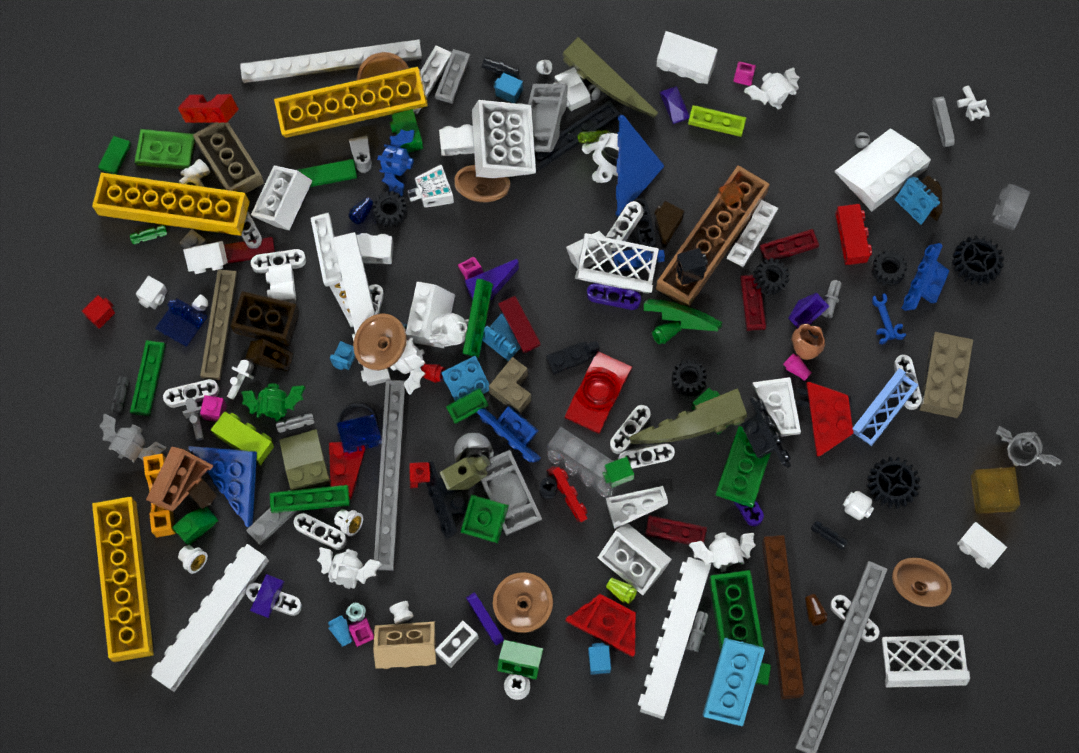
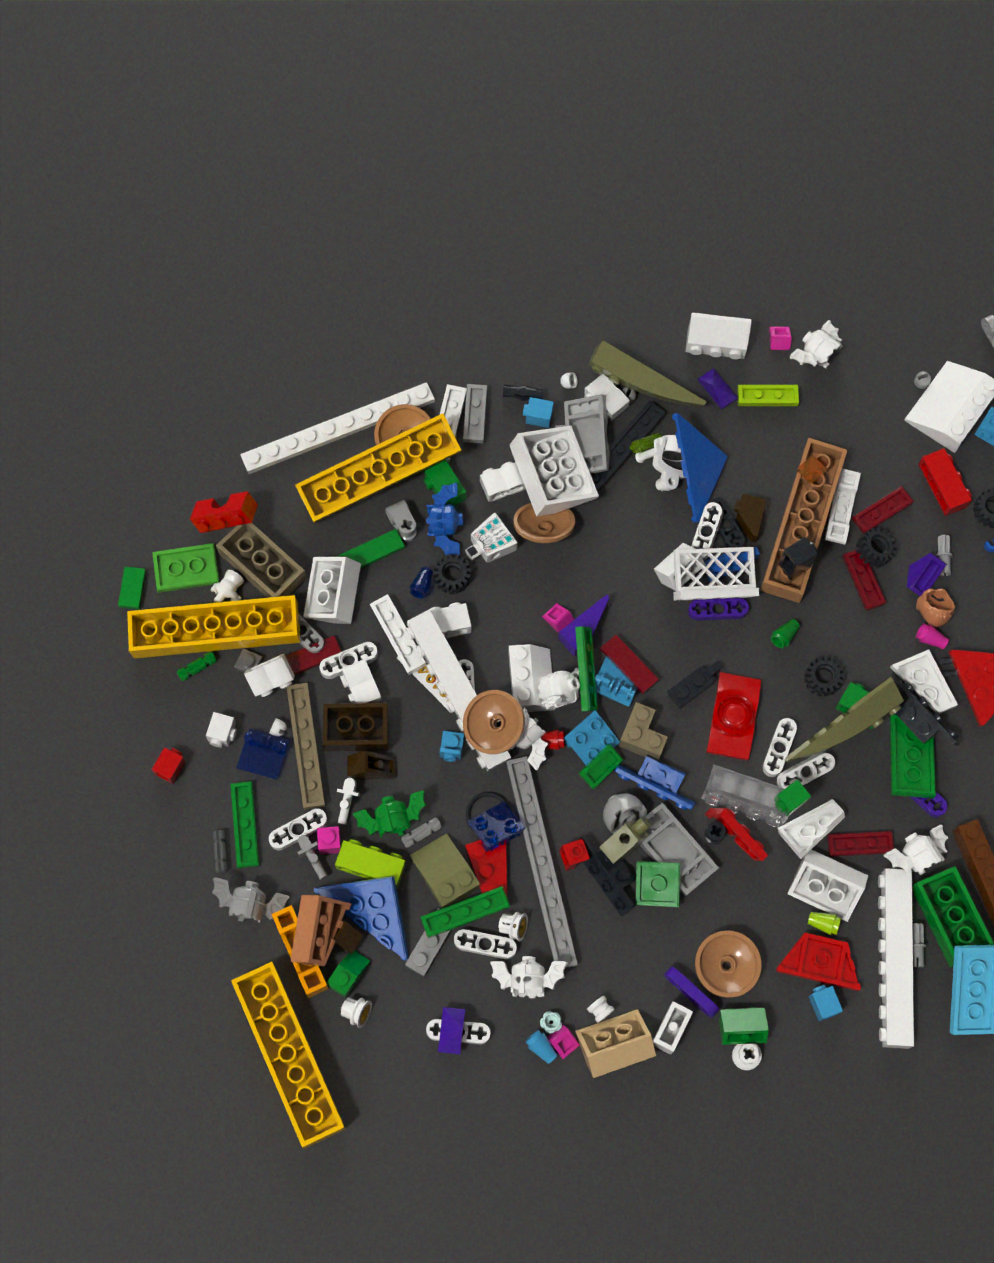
camera: 20 degrees left, 0 degrees up
(209, 618) = (396, 1071): white brick -> none
(689, 317) = (805, 611): green slope -> none

